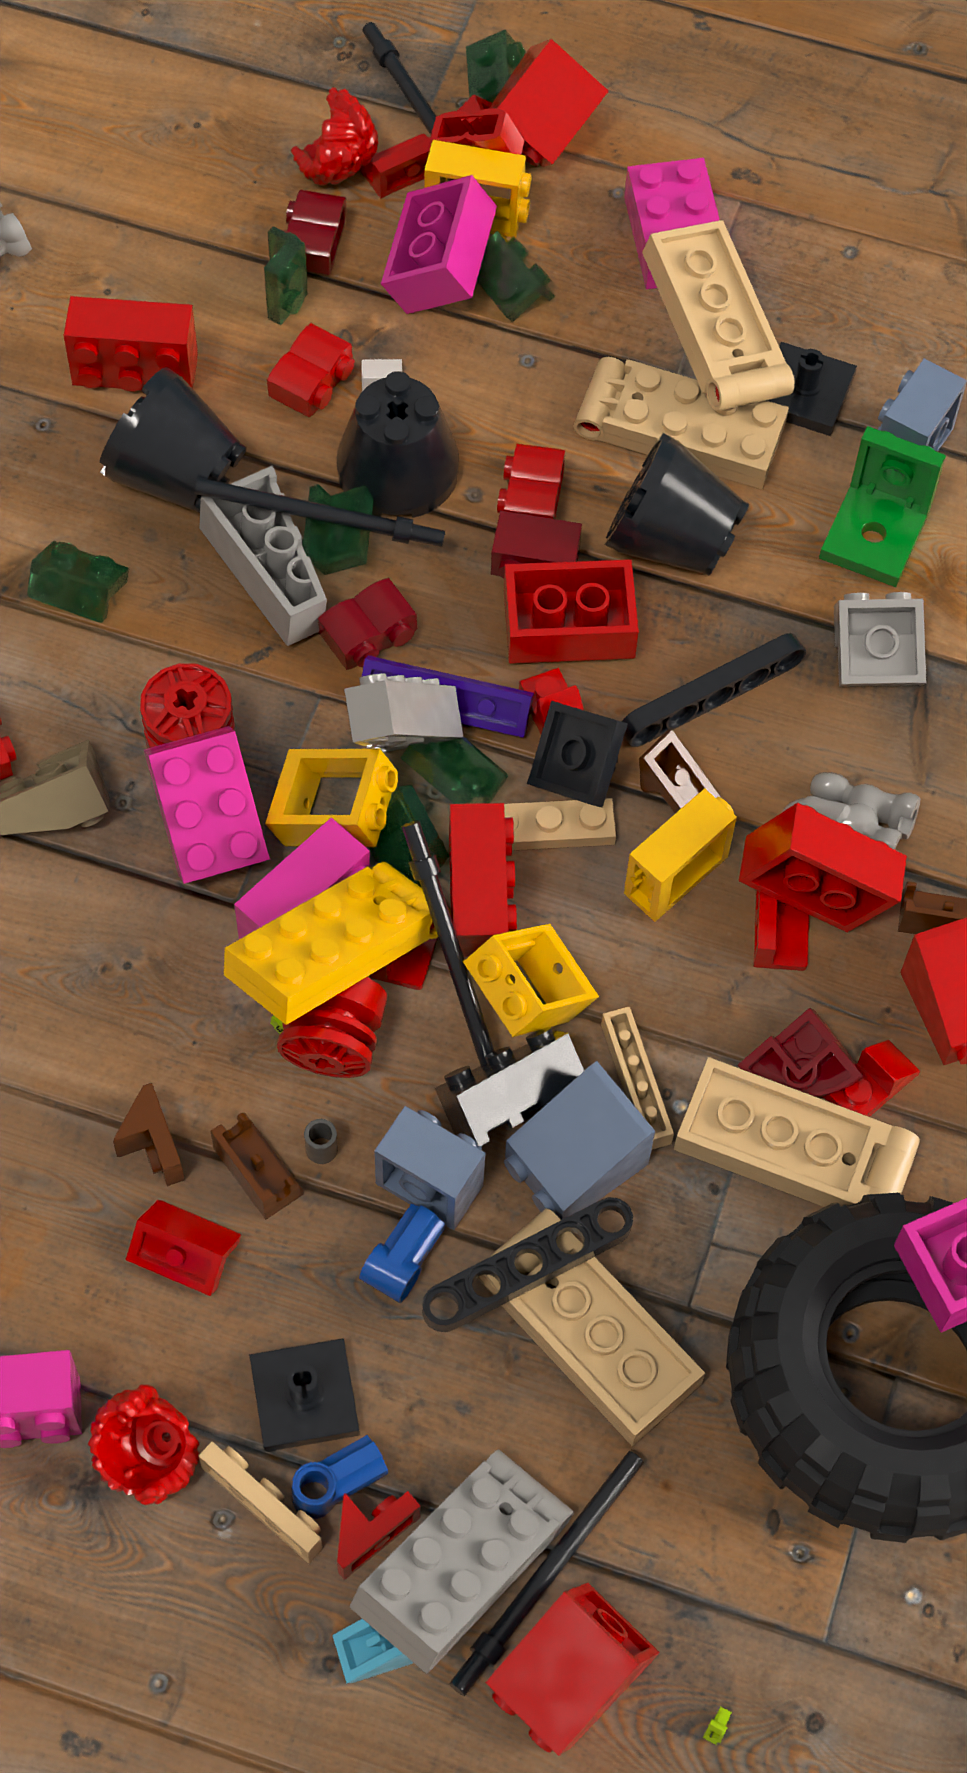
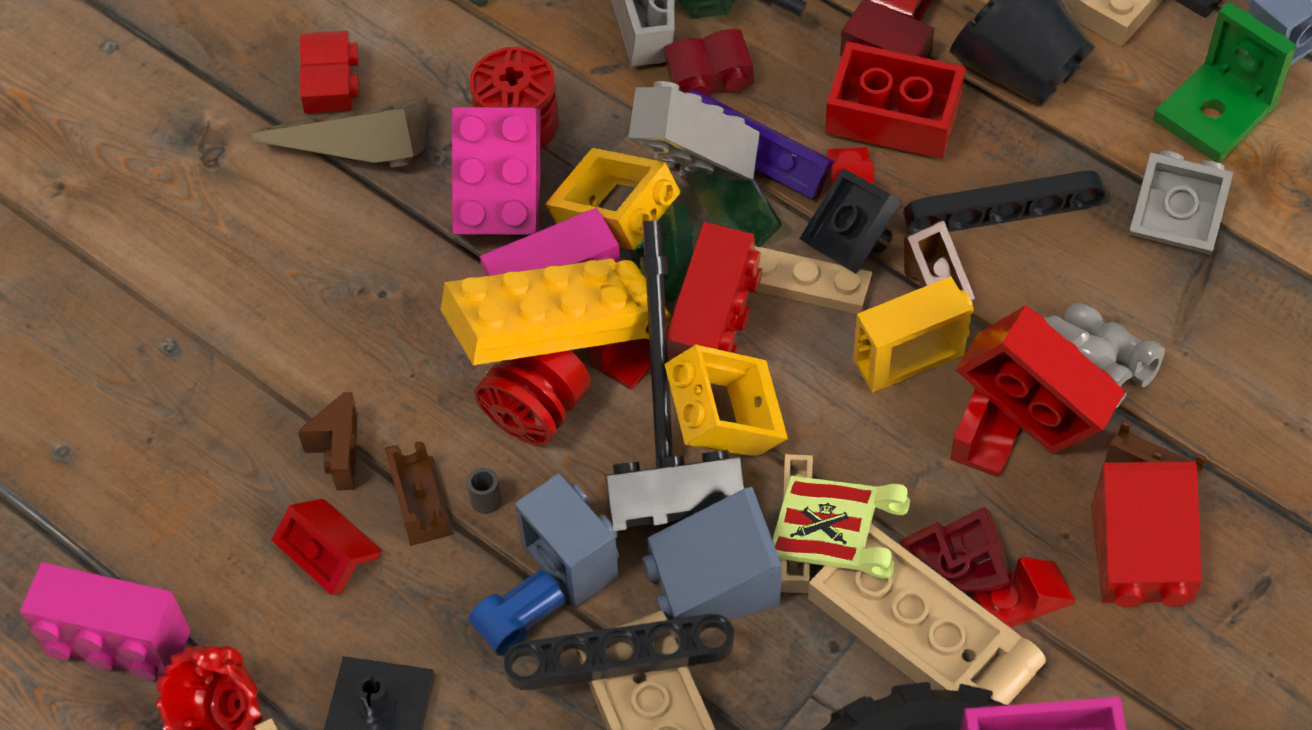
camera: 25 degrees right, 5 degrees down
(675, 1072) = (831, 523): none -> yellowish green flag

